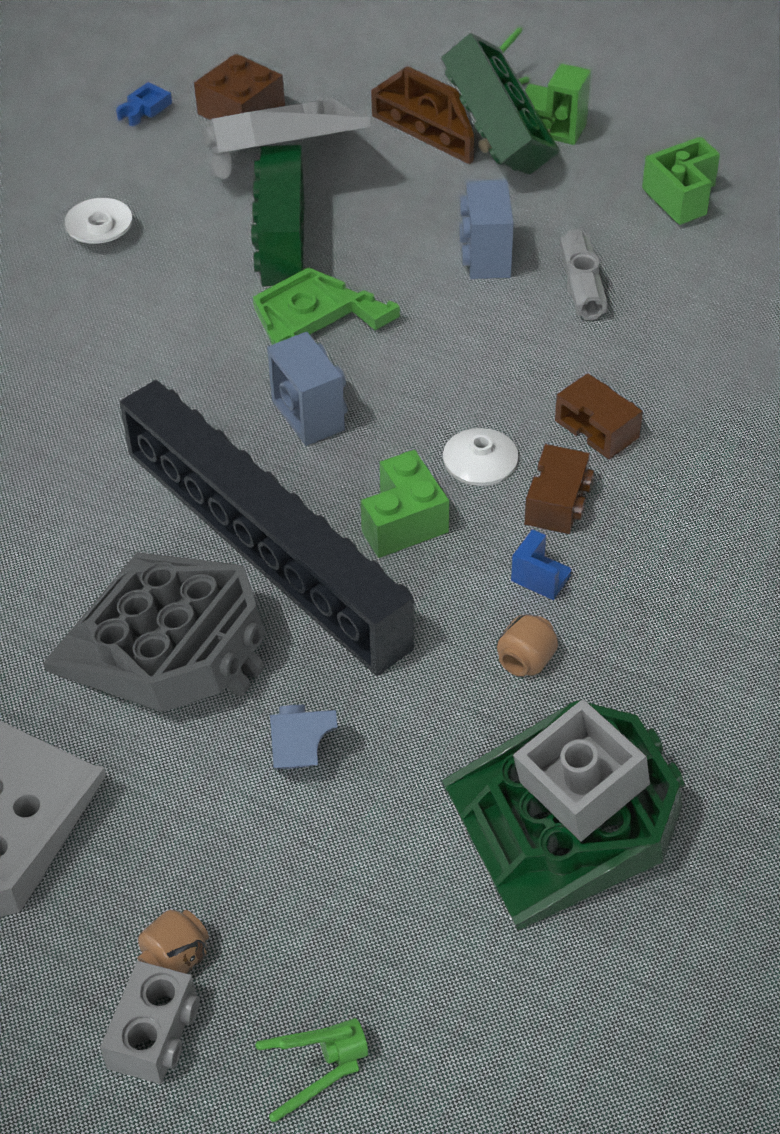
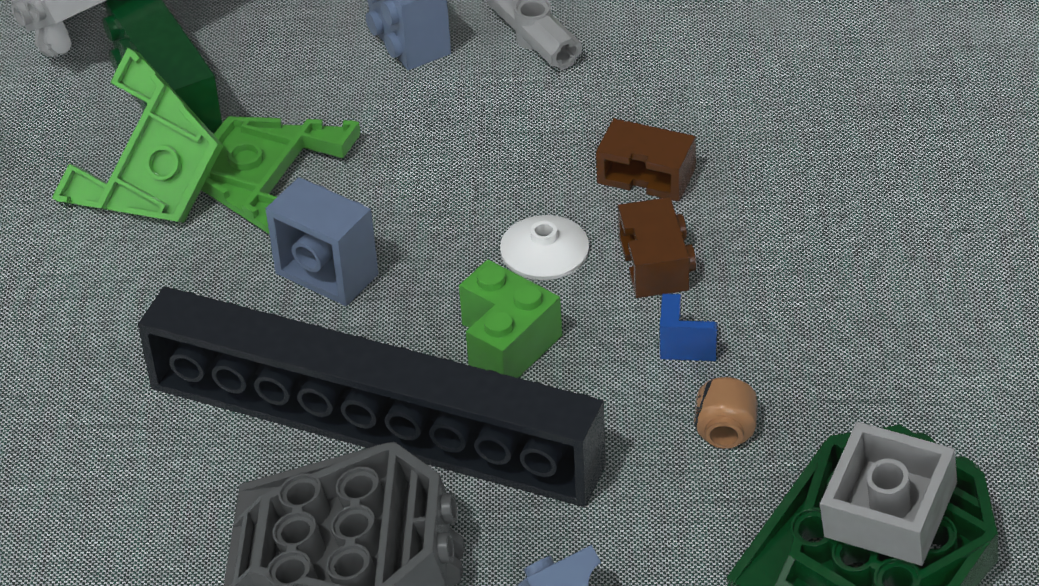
camera: 25 degrees left, 5 degrees down
(235, 282) = (162, 160): none -> bright green wing

